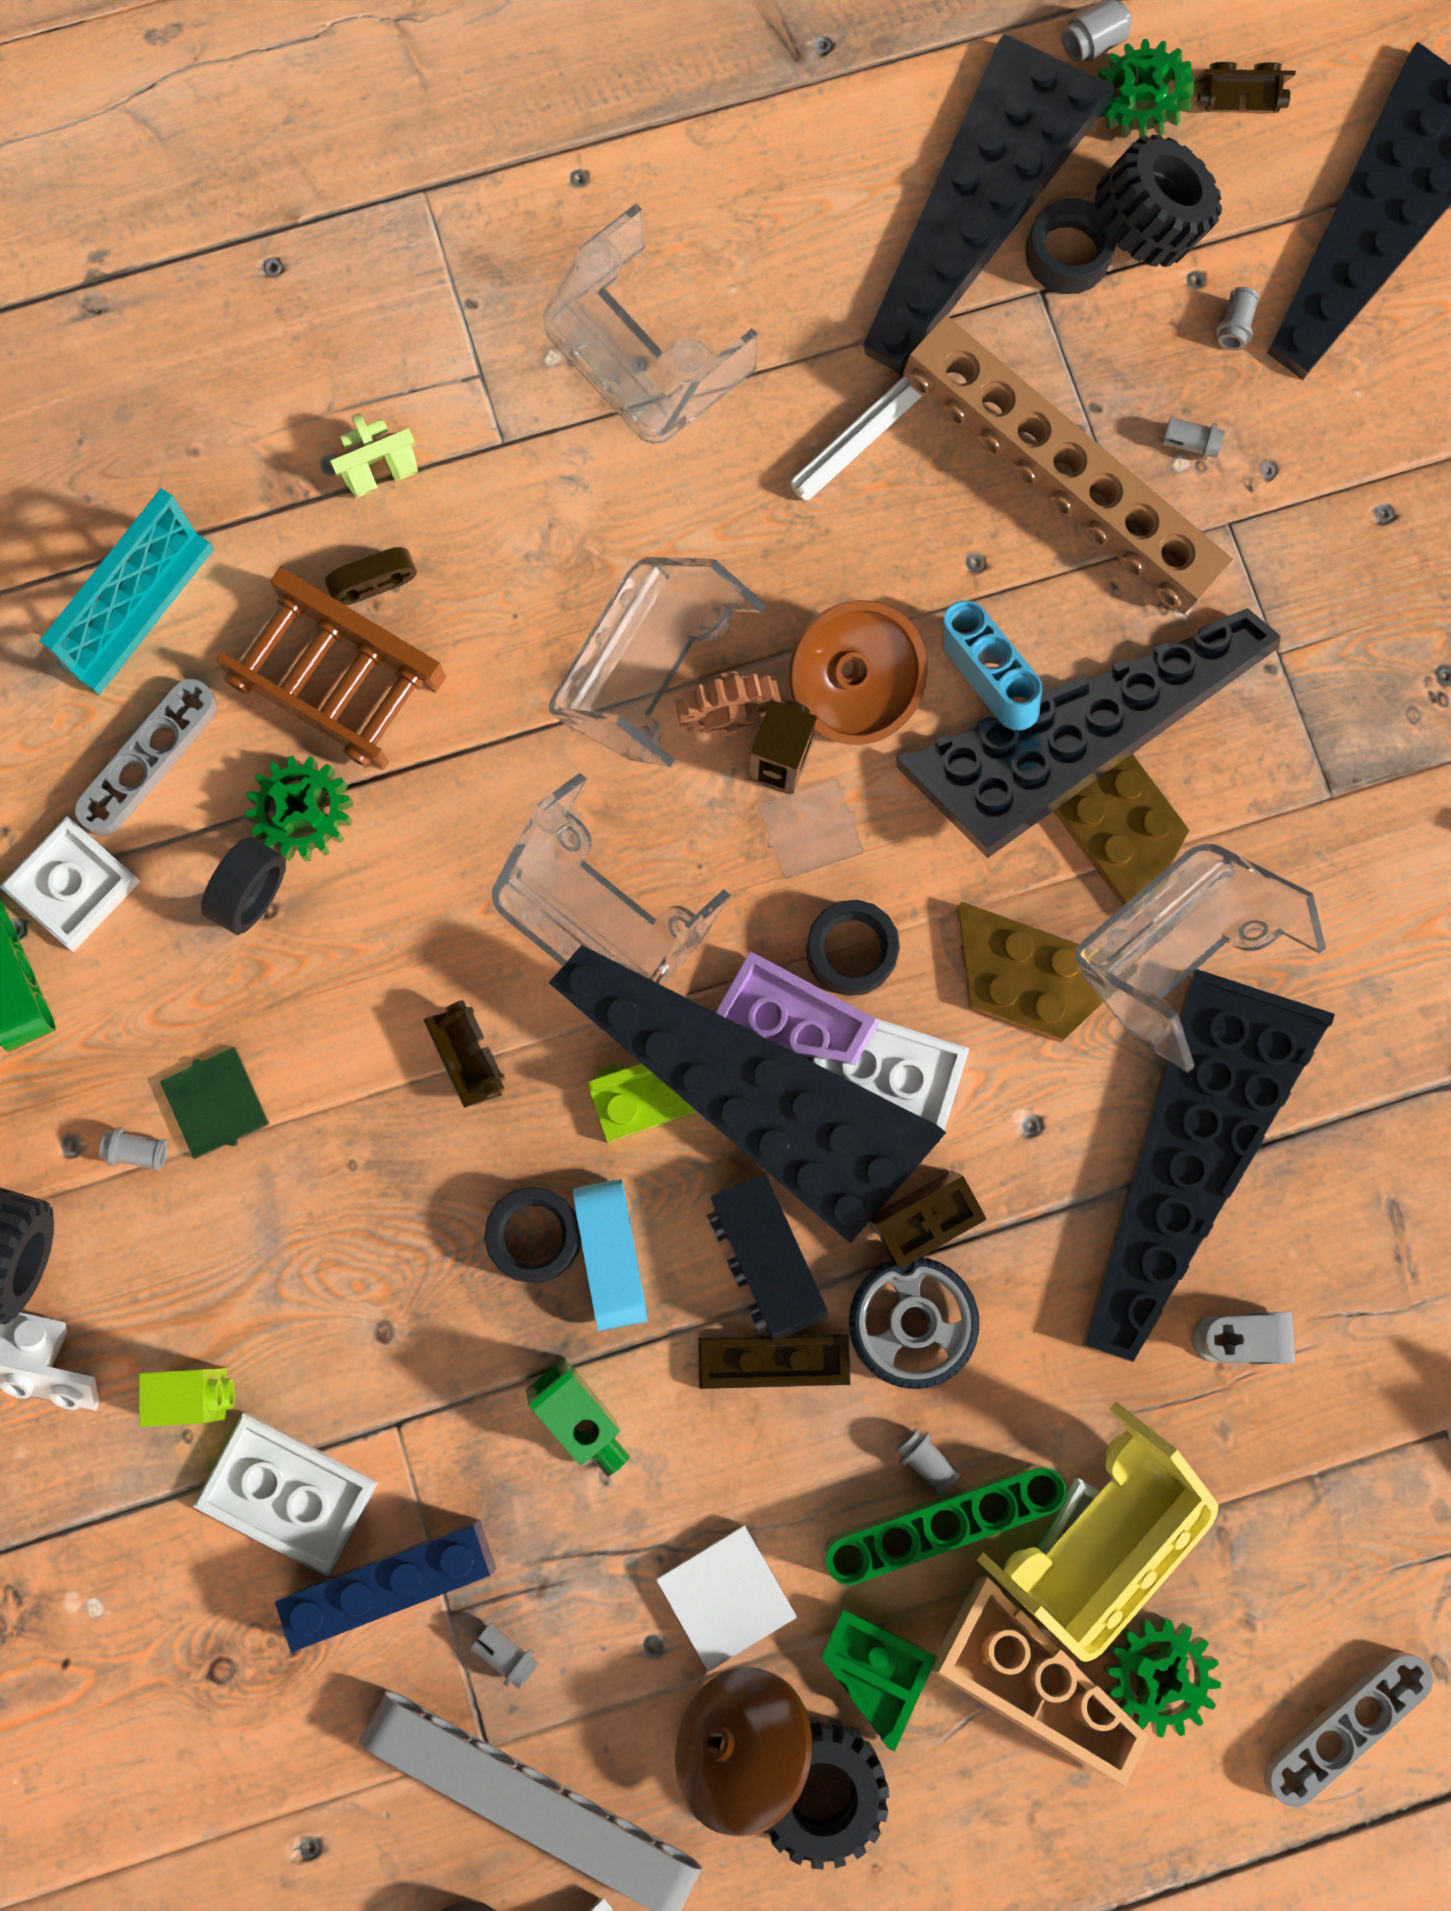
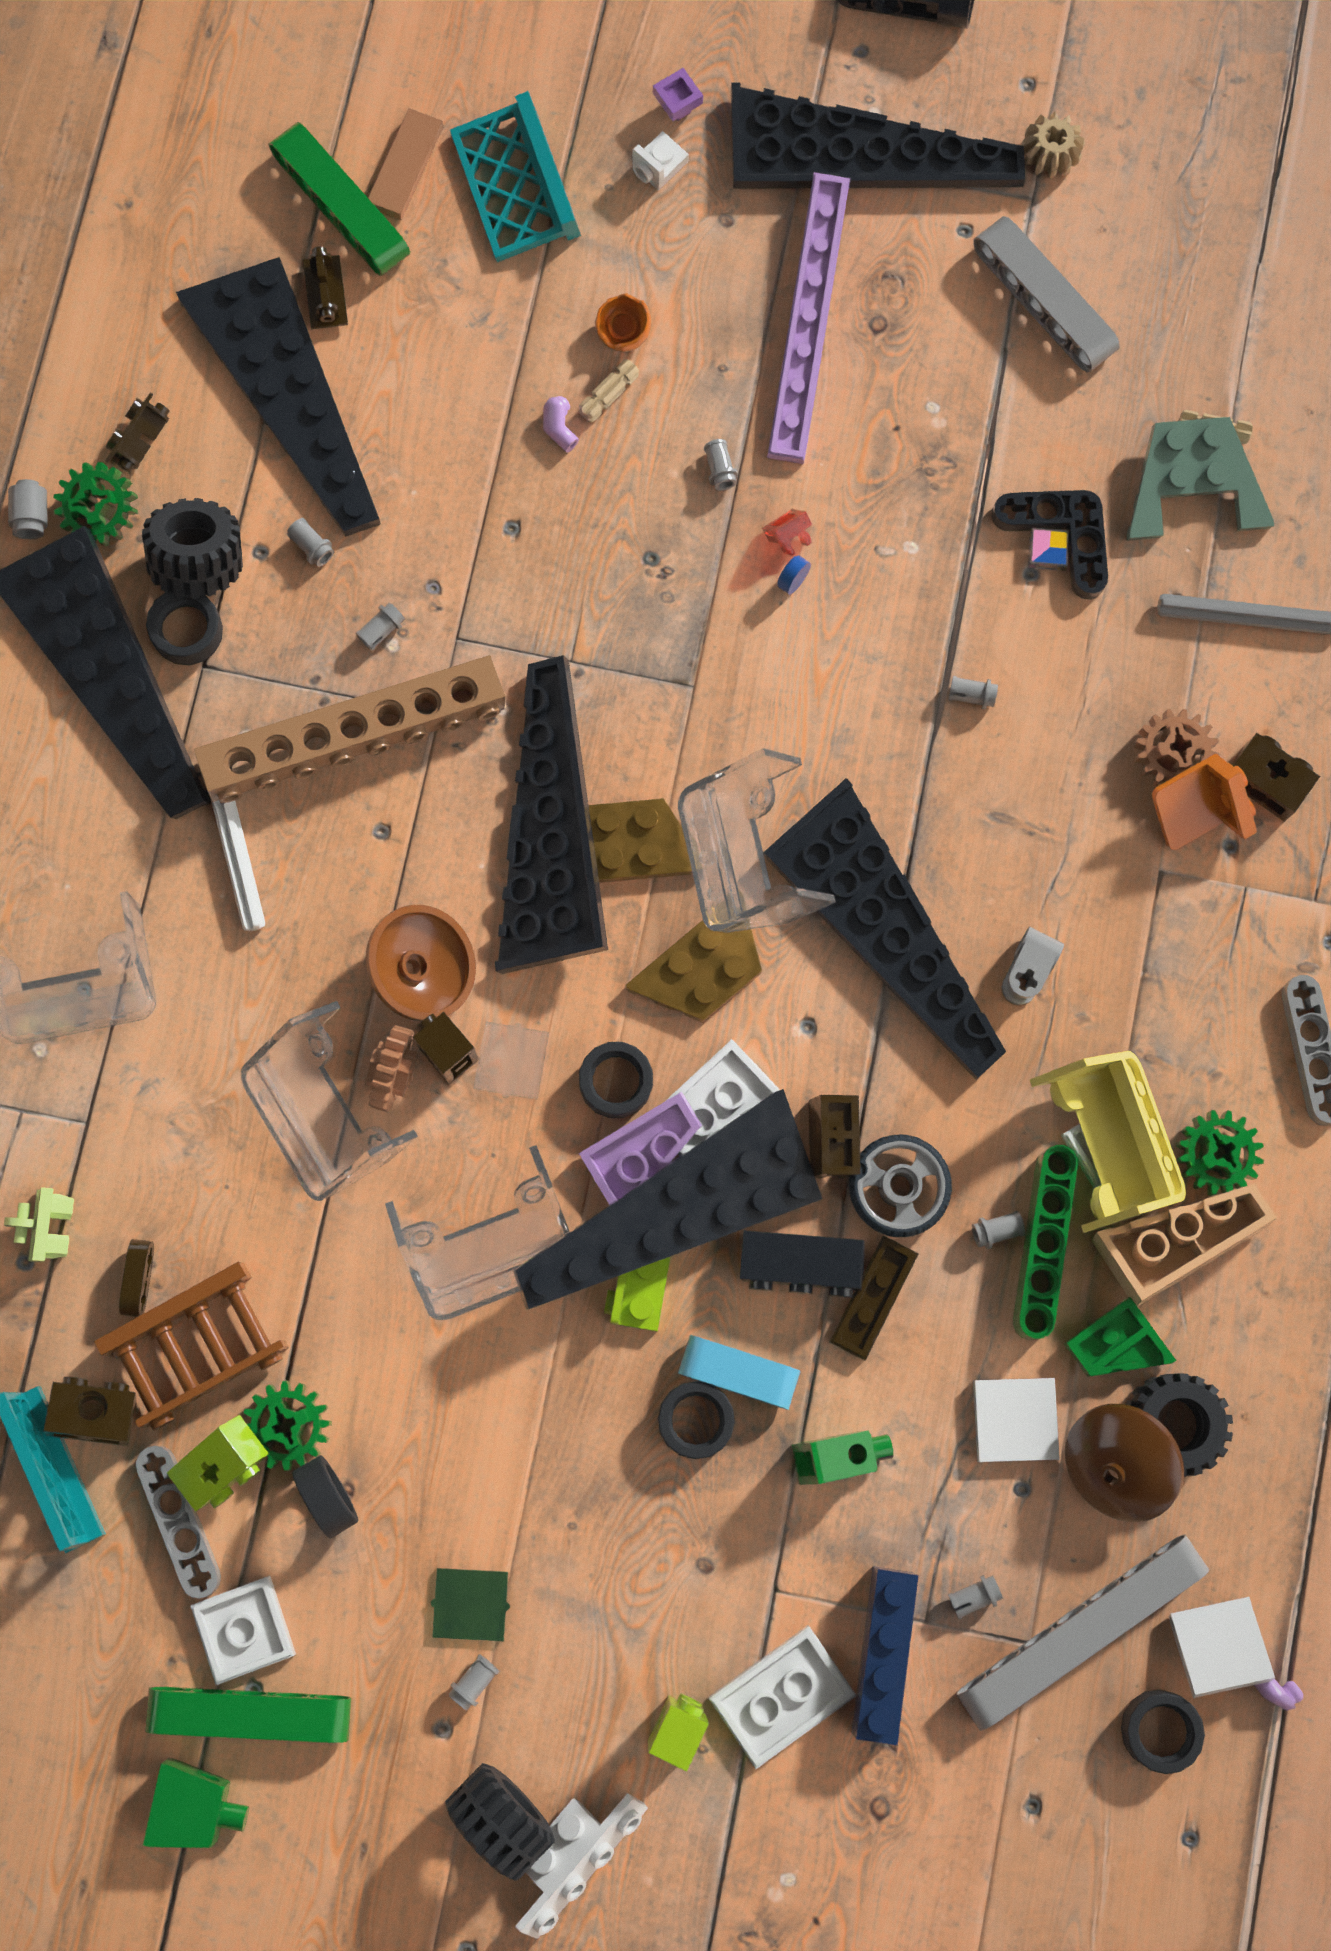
camera: 65 degrees left, 0 degrees up
(201, 577) = (110, 1427): none -> dark brown brick
(221, 759) = (218, 1463): none -> lime brick
(468, 1066) = (525, 1400): dark brown hinge -> none
(993, 684) = (453, 858): medium azure beam -> none

